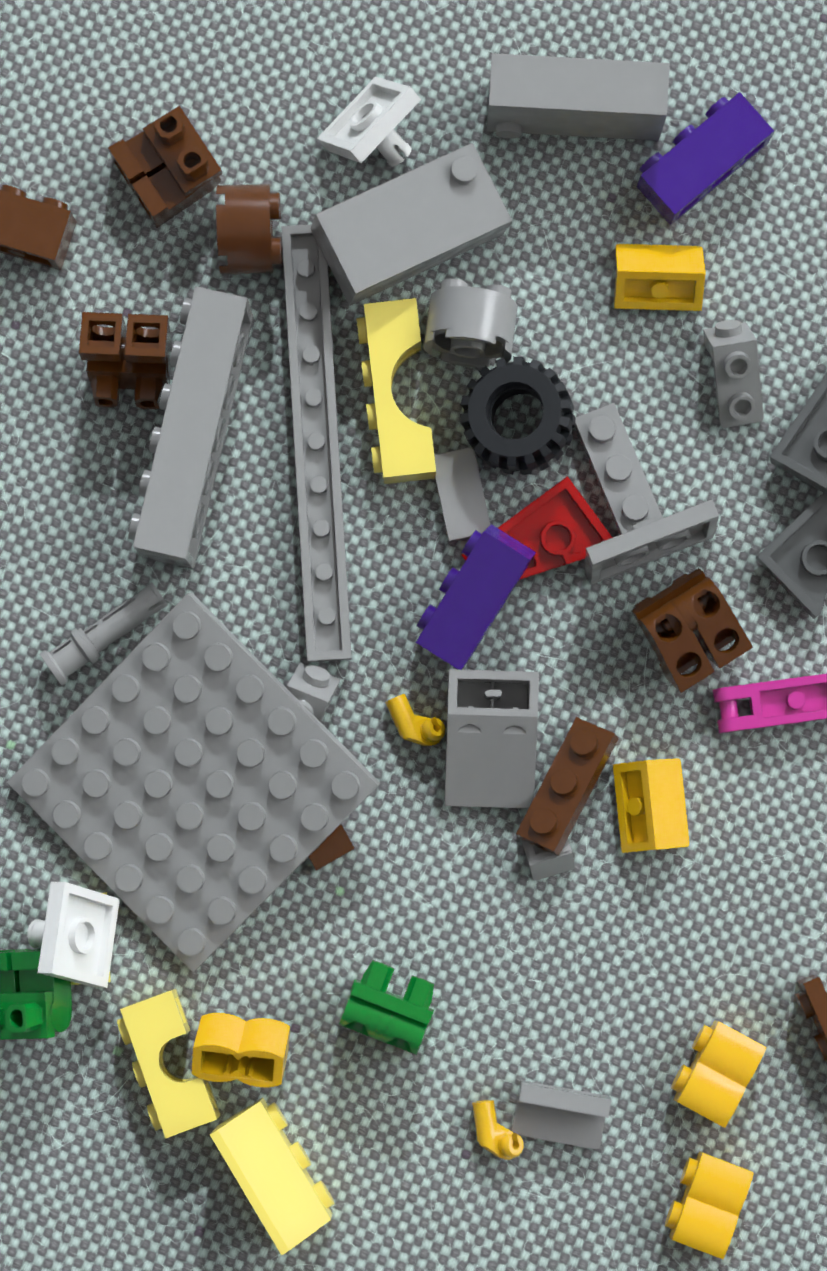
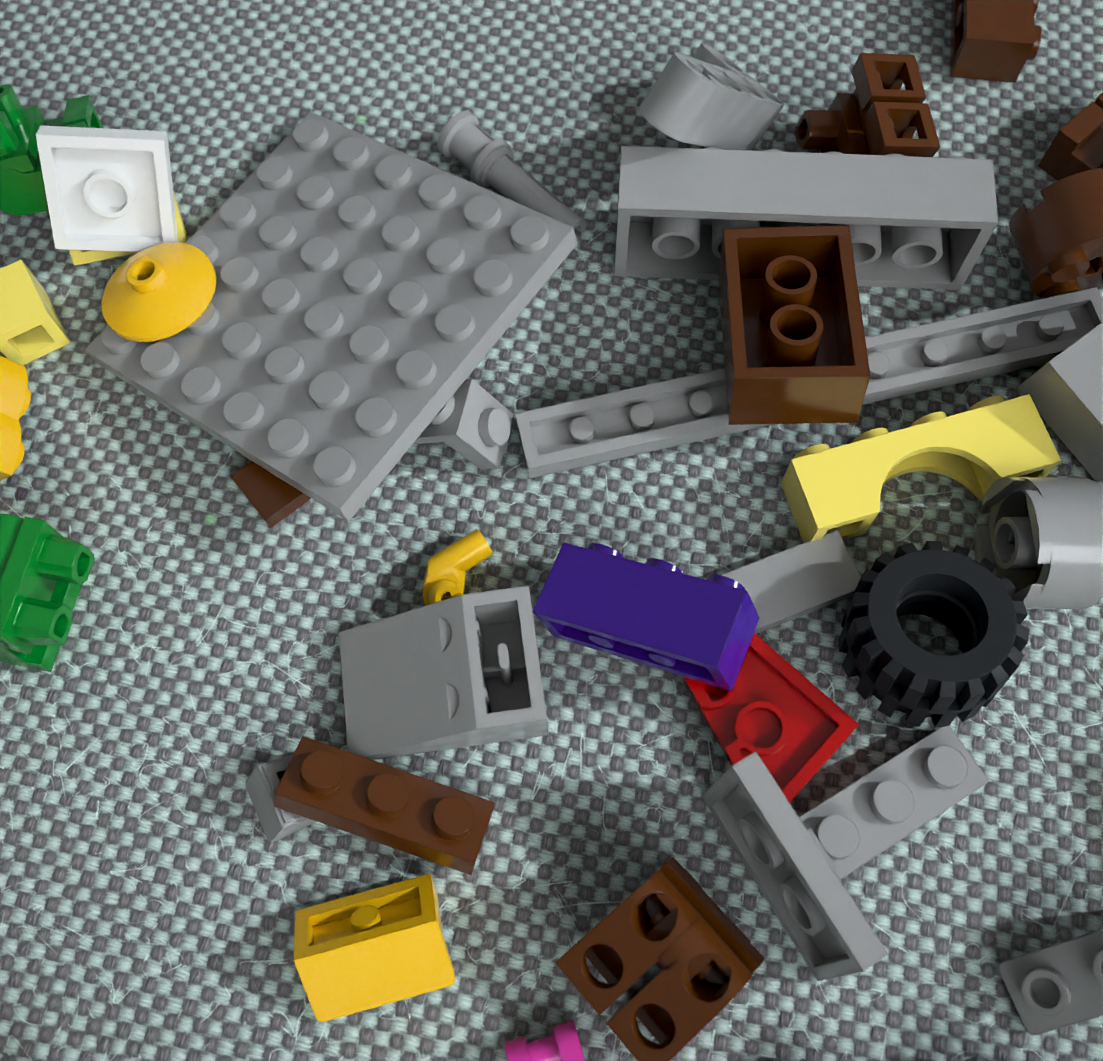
camera: 80 degrees right, 15 degrees down
(81, 451) = (710, 102): none -> light grey beam
(178, 896) = (158, 292): none -> yellow dish
(287, 456) = (792, 326): none -> reddish brown brick

